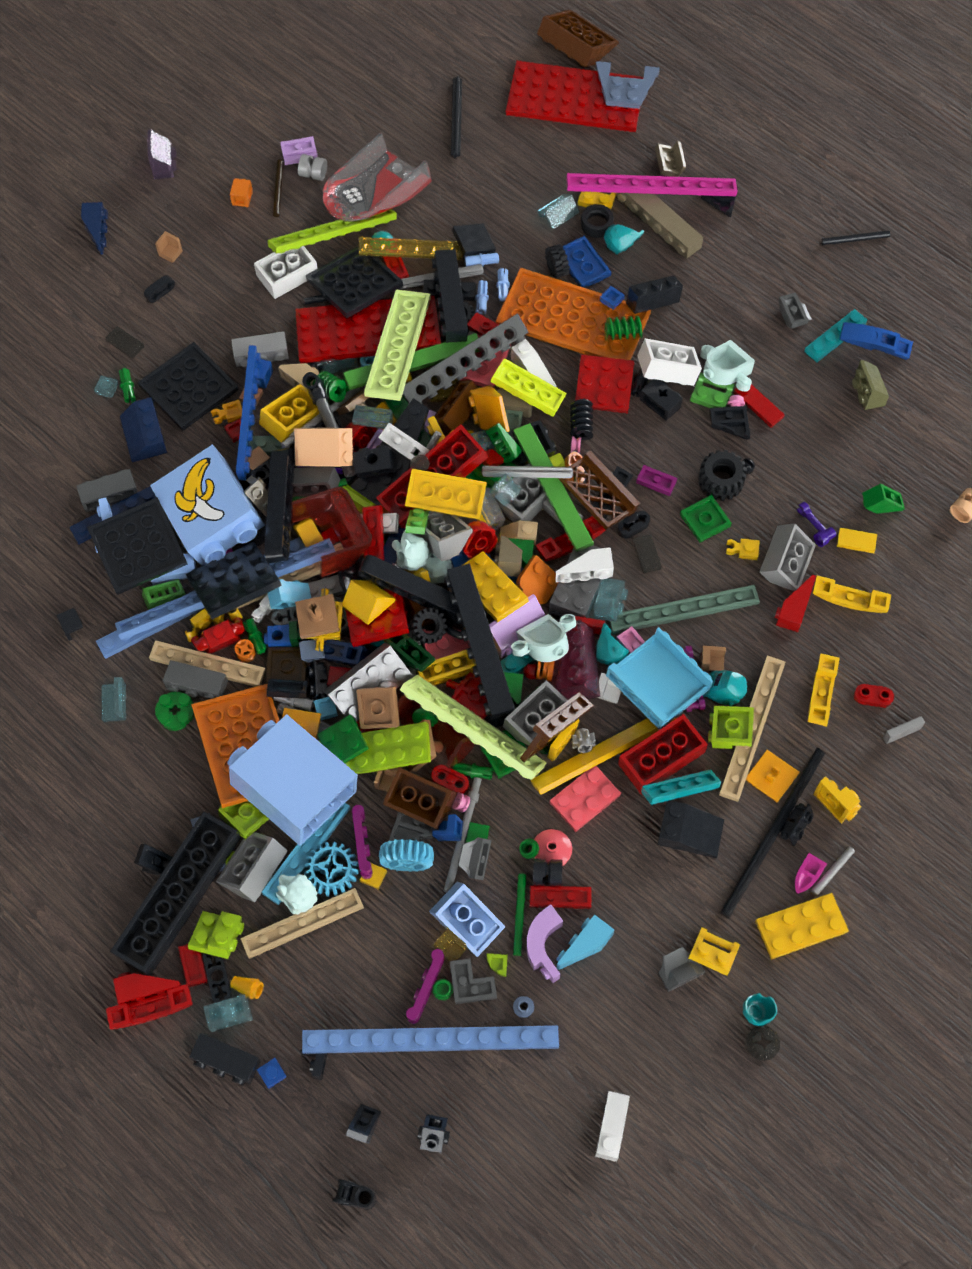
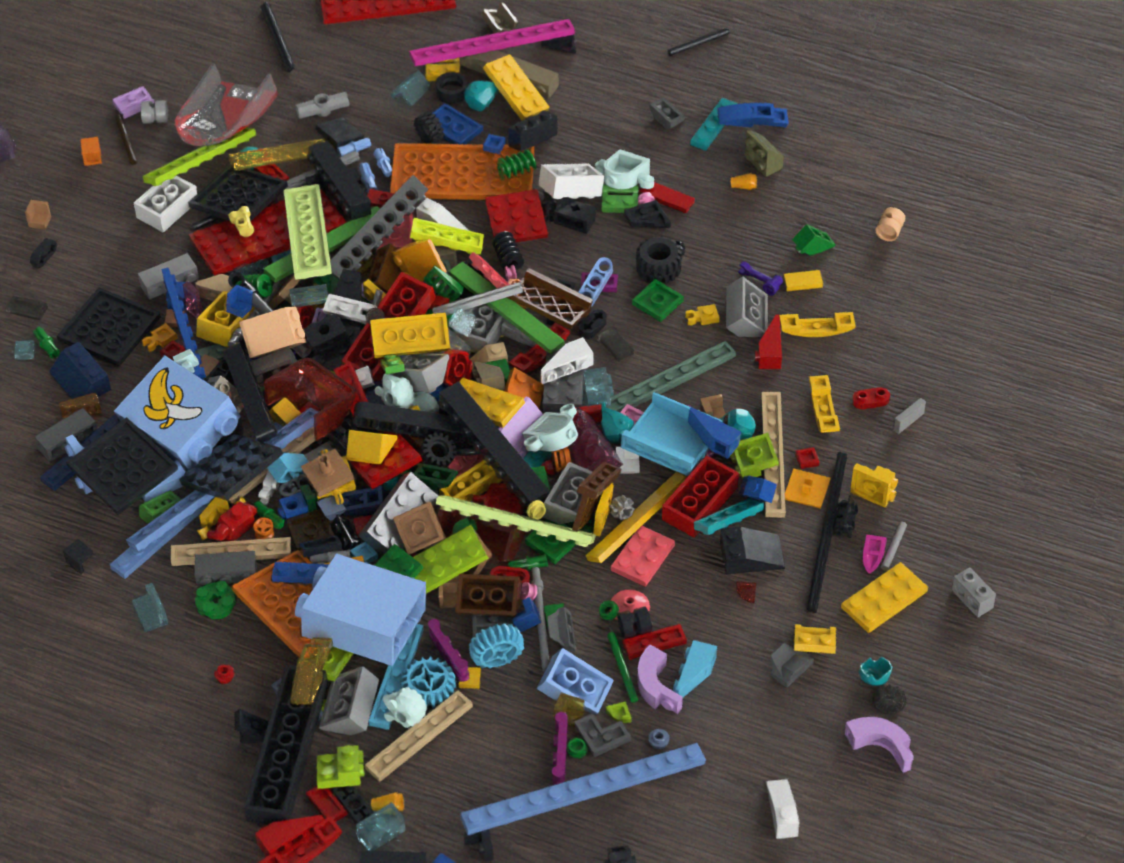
camera: 20 degrees left, 15 degrees down
(137, 464) = (88, 402): none -> clear orange slope
(158, 792) = (224, 678): none -> red plate
(218, 829) = (309, 670): none -> clear yellow slope
(231, 455) = (187, 360): none -> light aqua tile
(255, 710) = (295, 572): none -> blue plate
(269, 383) = (192, 299): none -> clear pink plate
(305, 403) = (239, 301): none -> blue panel
(342, 314) = (242, 221): none -> light yellow plate
(468, 205) = (322, 105): none -> light grey piece
(495, 723) = (536, 510): none -> light yellow plate
(553, 447) = (489, 273): none -> coral wing
(656, 241) = (515, 87): none -> yellow plate
(659, 481) = (597, 274): none -> light blue beam
(670, 871) = (746, 590): none -> clear red tile
(702, 697) = (715, 434): none -> blue slope
(719, 766) = (757, 489): none -> blue slope
(733, 1075) = (880, 732): none -> lavender arch
(785, 742) = (807, 458): none -> red tile
(840, 411) = (745, 181): none -> light orange cone
(891, 954) = (973, 592): none -> light grey brick

